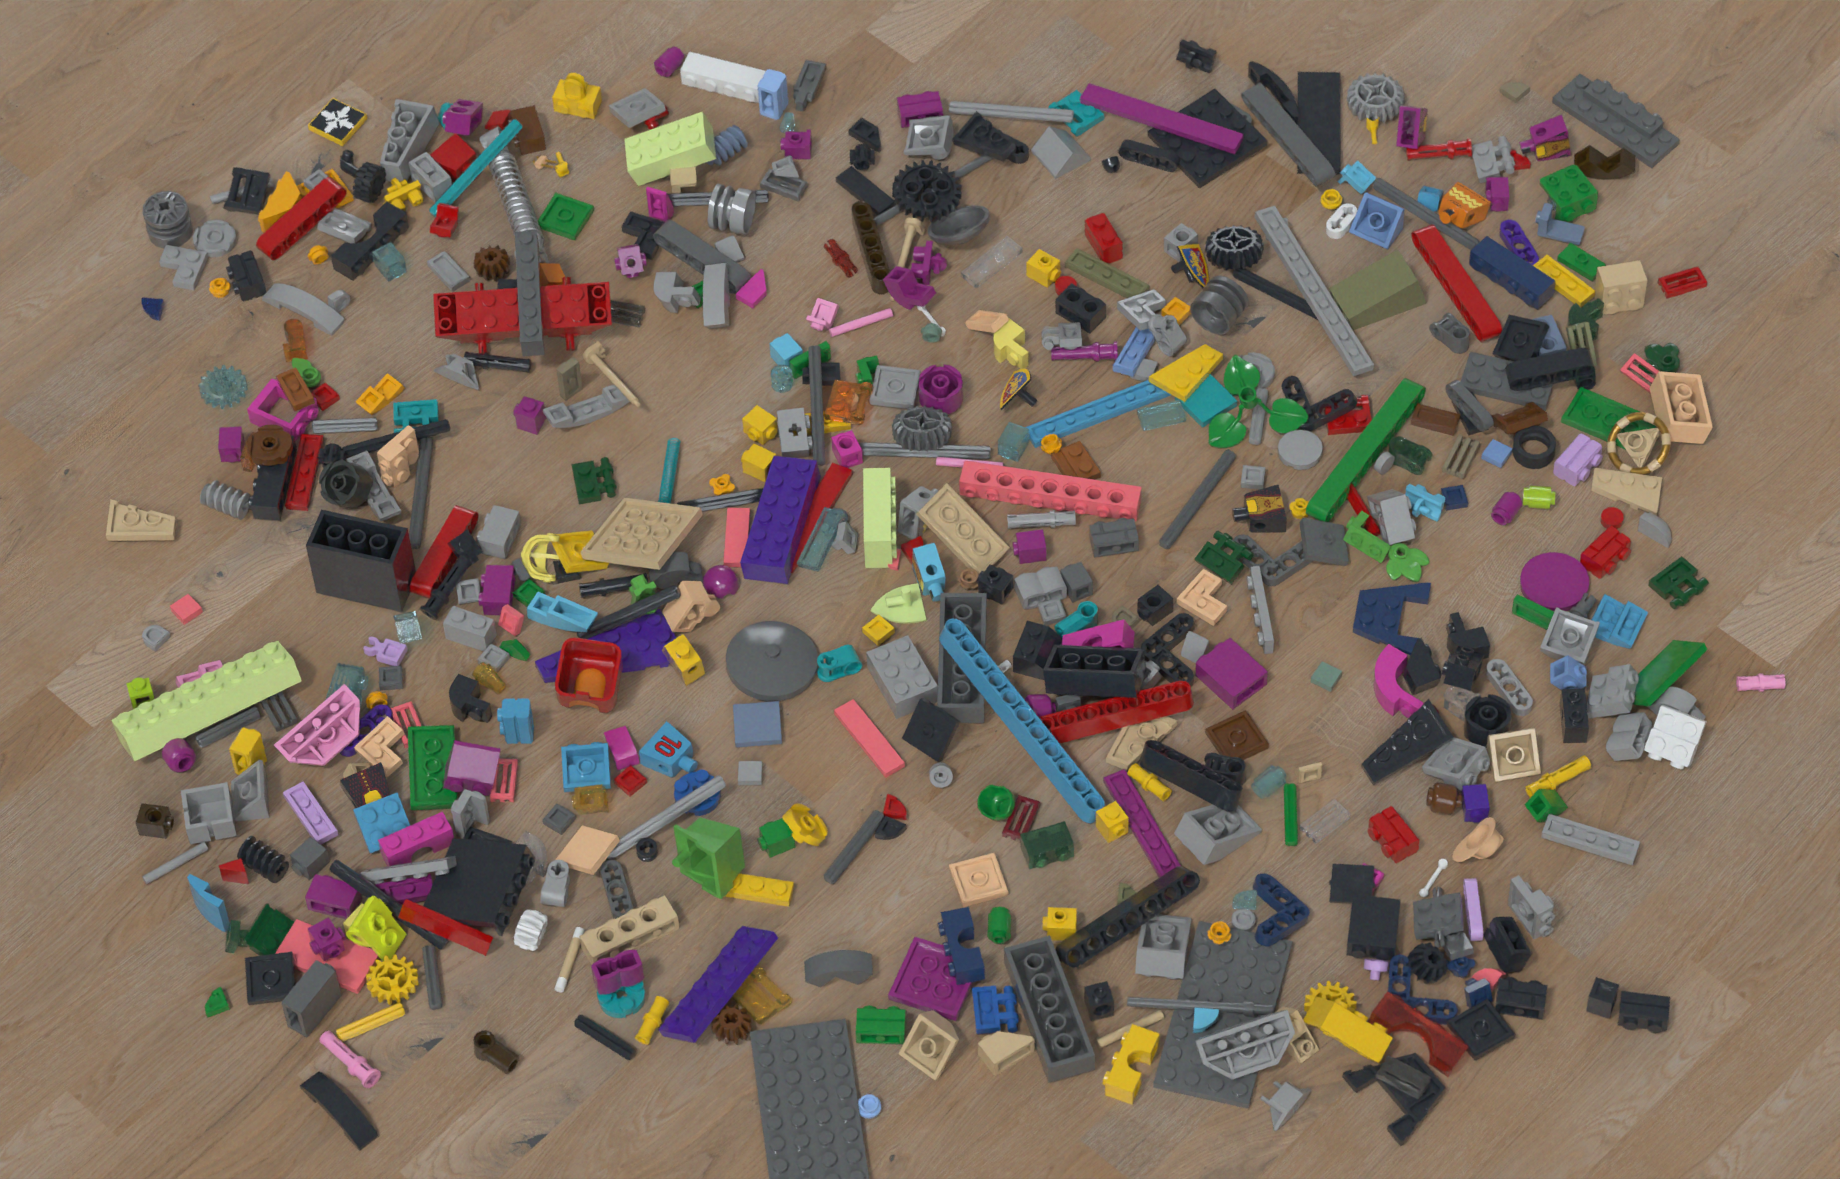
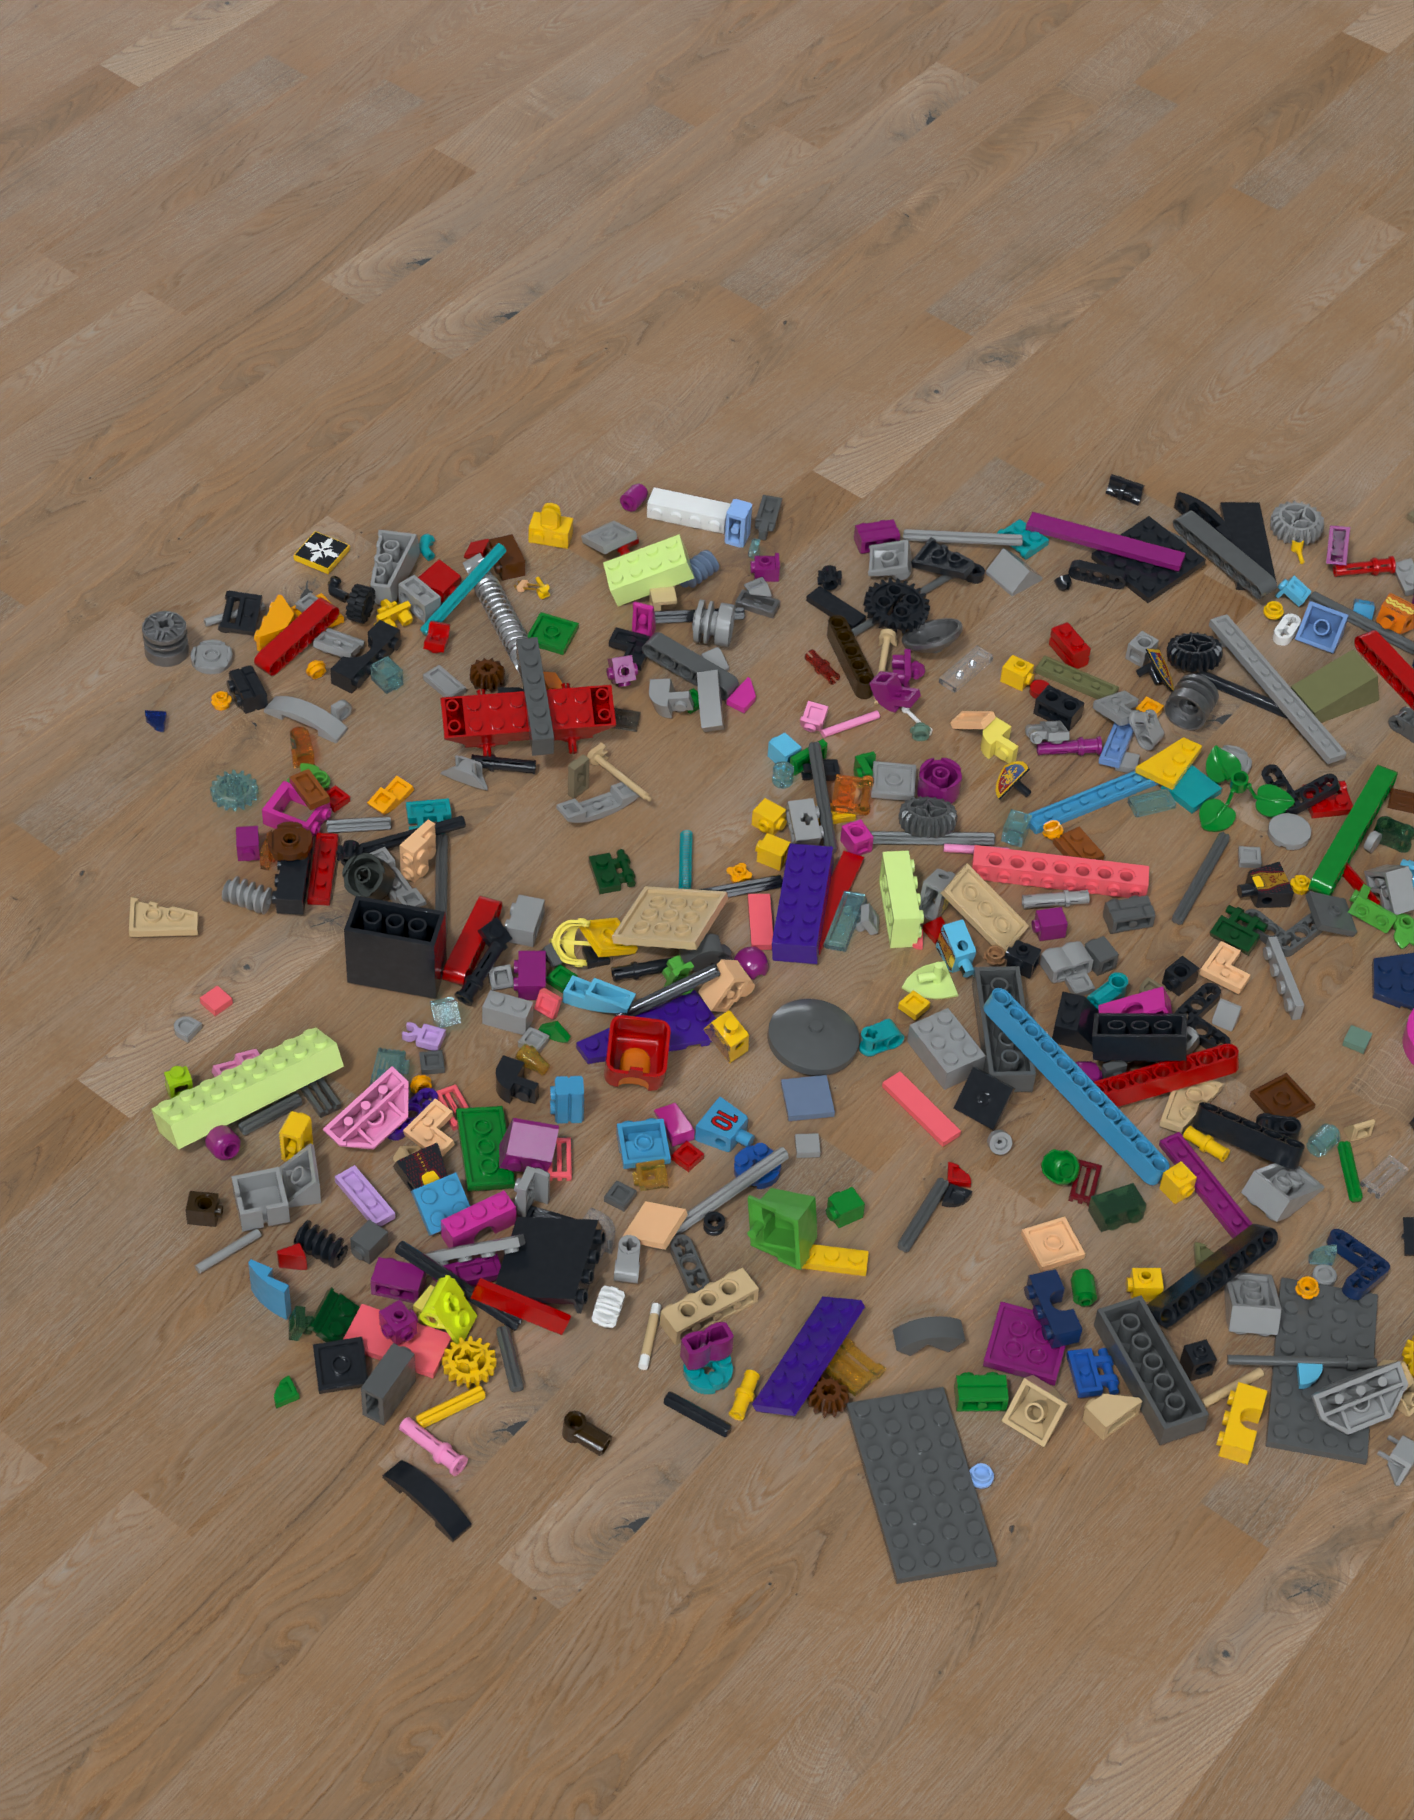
camera: 10 degrees left, 5 degrees down
(188, 264) = (187, 678): light grey plate -> none
(463, 117) = (444, 545): magenta brick -> none
(529, 415) = (542, 811): magenta brick -> none
(804, 825) = (874, 1196): yellow plate -> none
(866, 133) = (827, 556): black tile -> none
(1231, 673) = (1266, 1037): magenta brick -> none
(1258, 418) = (1244, 809): light grey axle -> none

